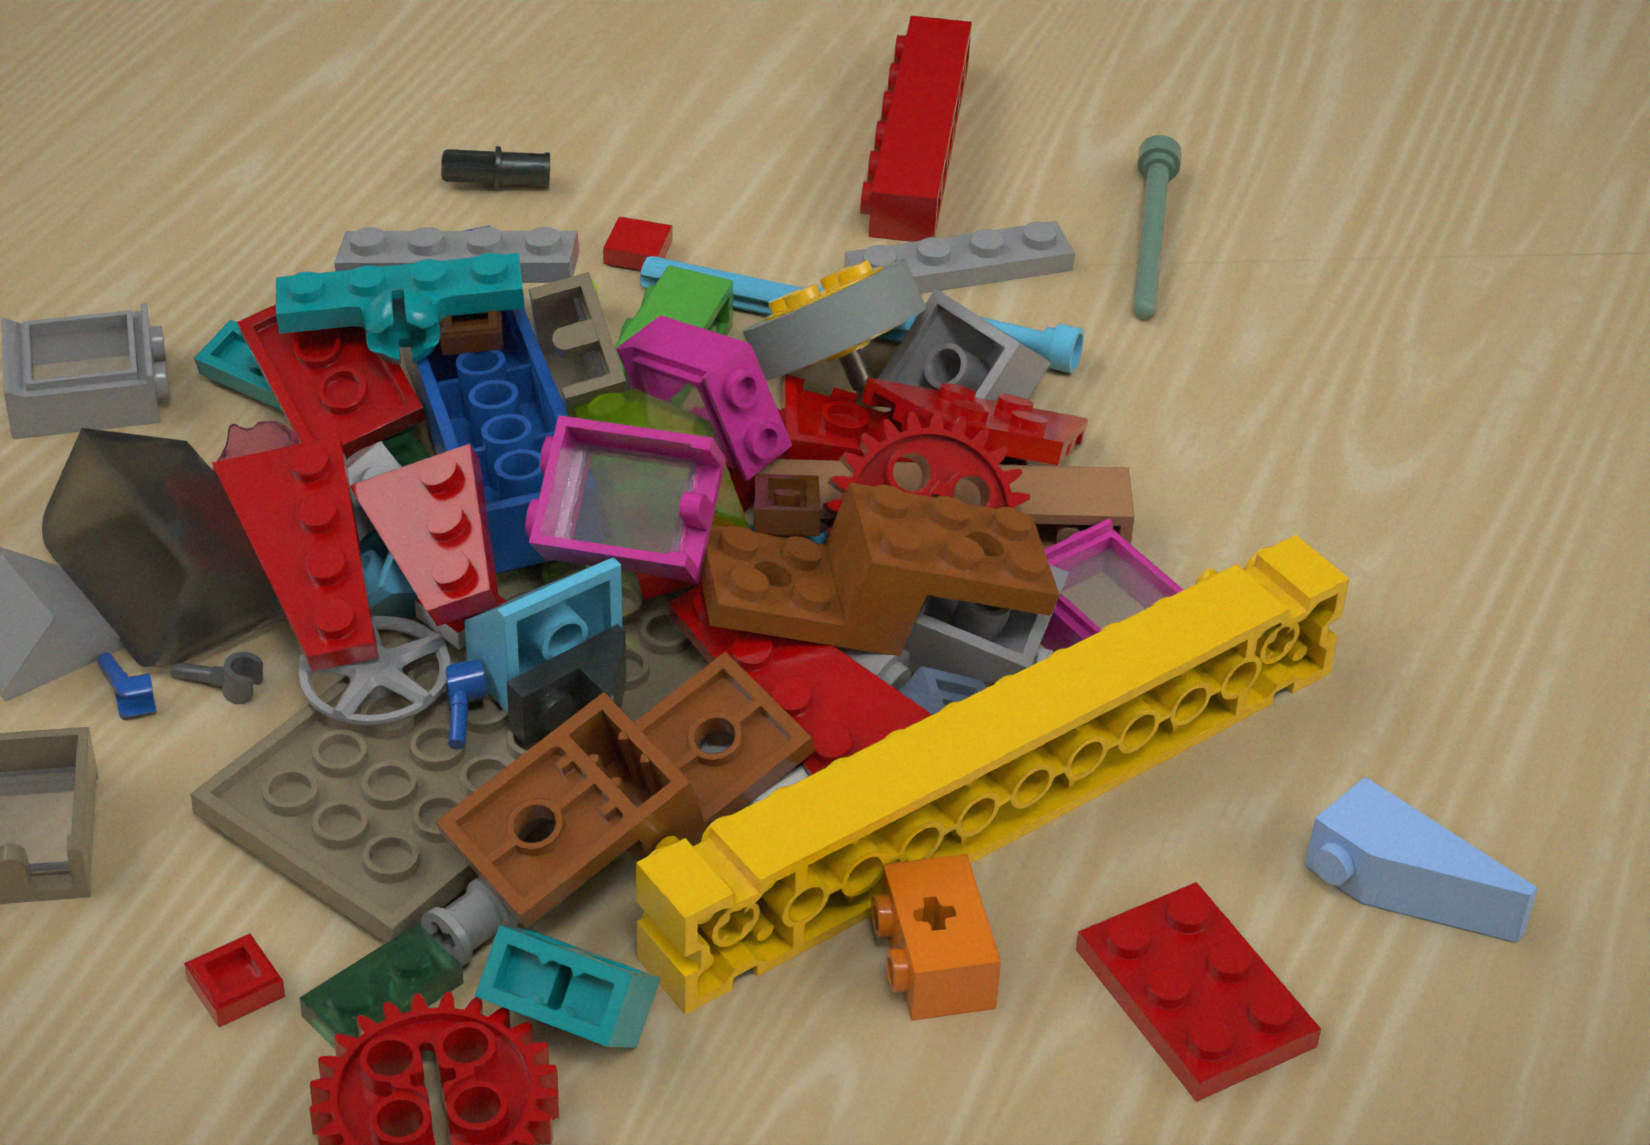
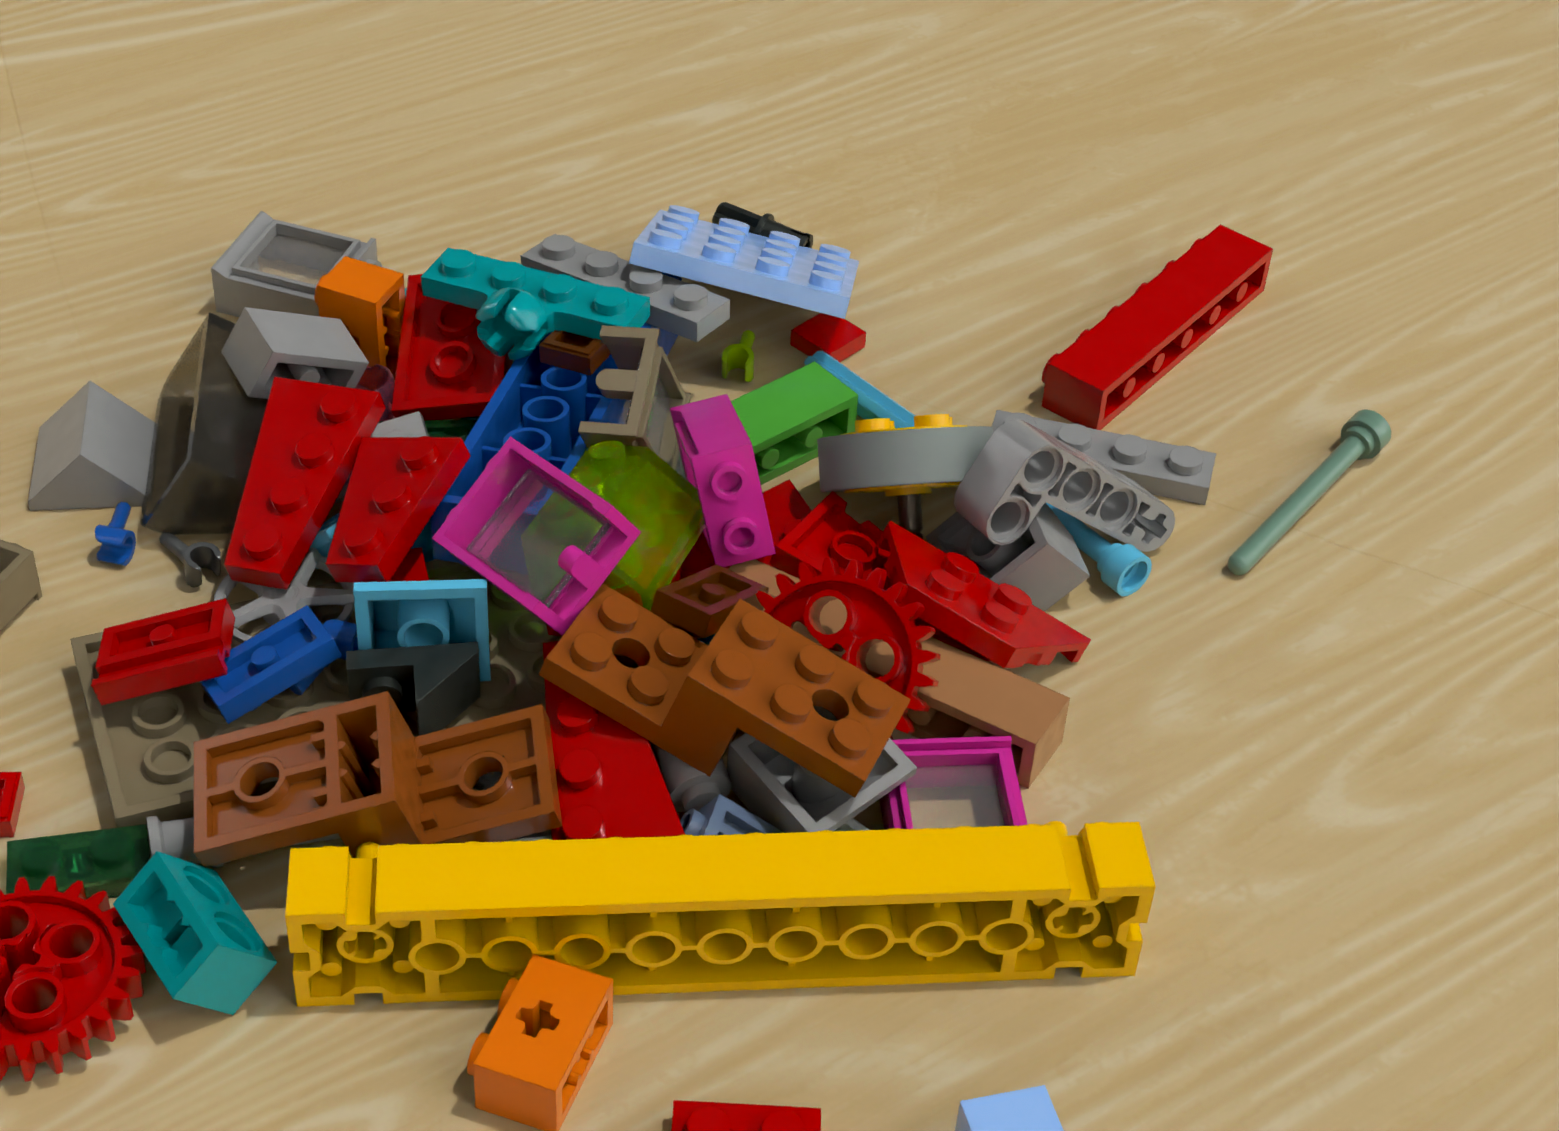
camera: 30 degrees right, 0 degrees up
(187, 432) = (291, 347): none -> light grey brick
(209, 382) = (369, 305): none -> orange brick
(320, 758) = (164, 651): none -> red plate
(427, 728) = (271, 663): none -> blue plate
(538, 192) = (746, 261): none -> light blue plate
(974, 283) = (1028, 467): none -> light grey beam

